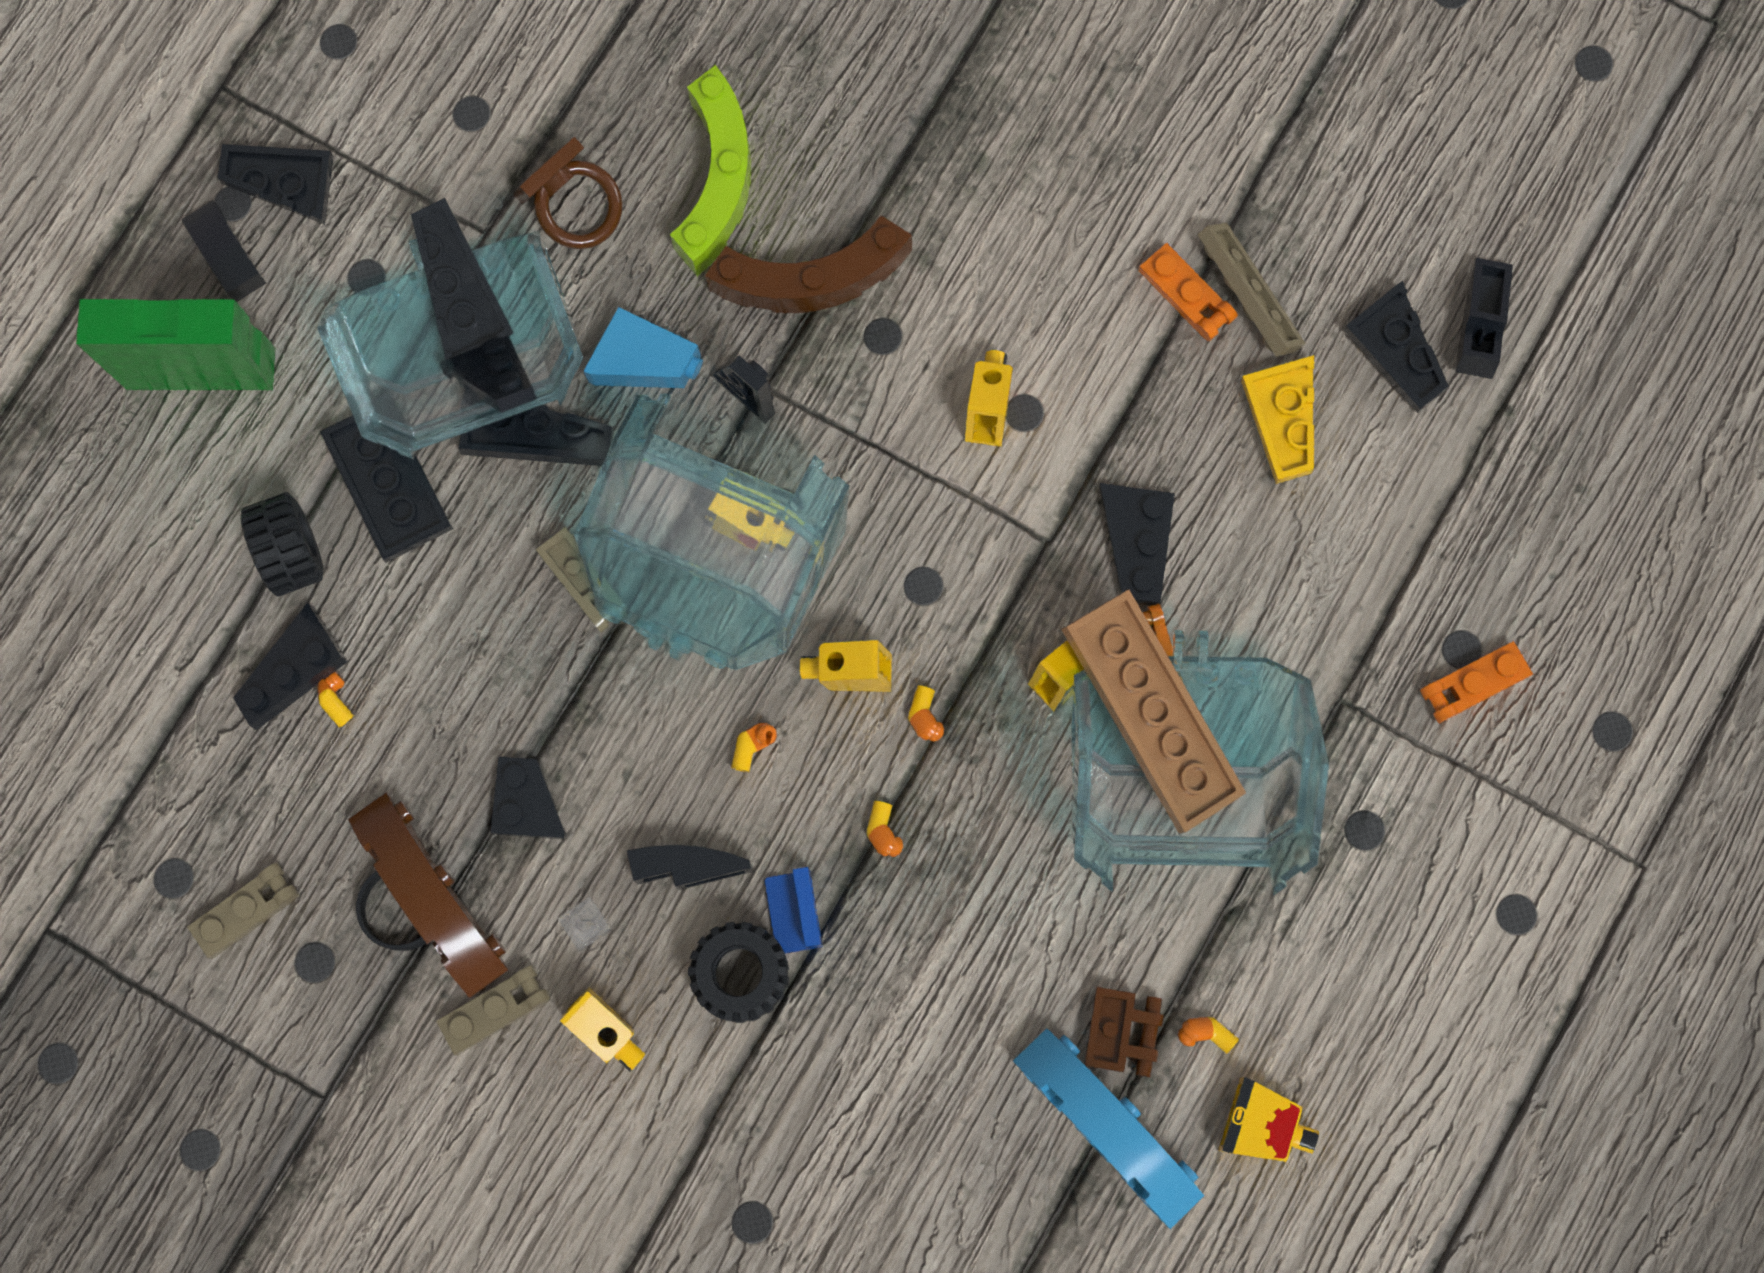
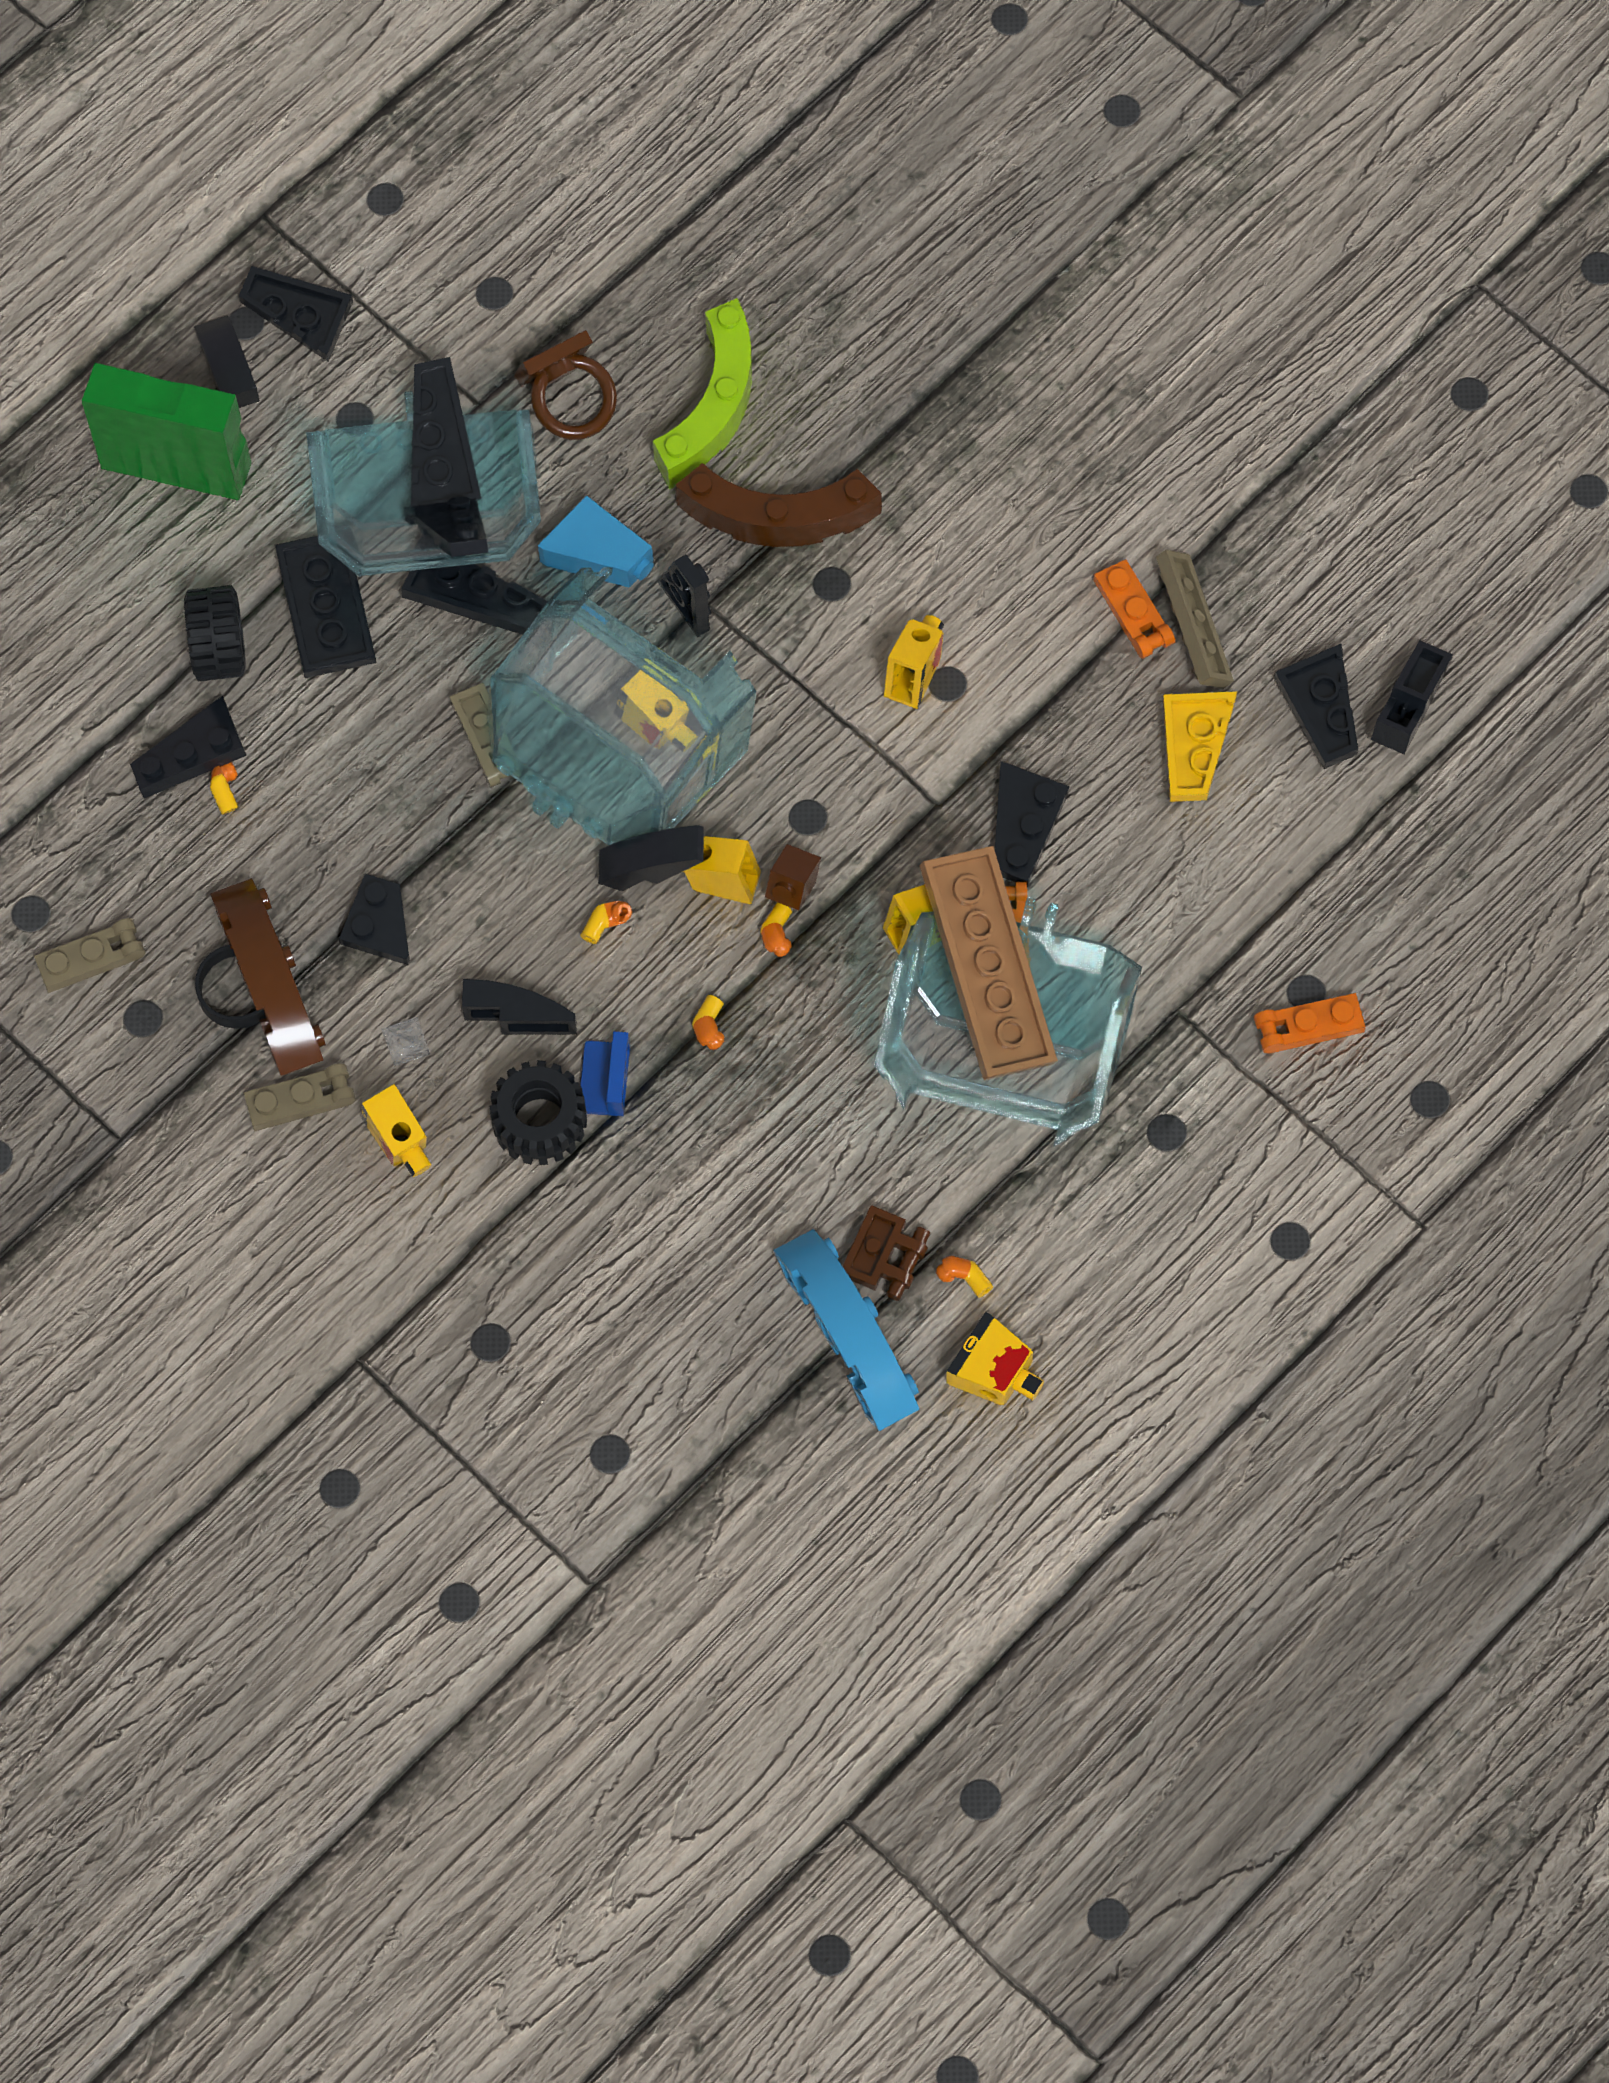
camera: 10 degrees right, 10 degrees down
(783, 675) = (650, 857): none -> black slope
(928, 658) = (792, 877): none -> reddish brown brick

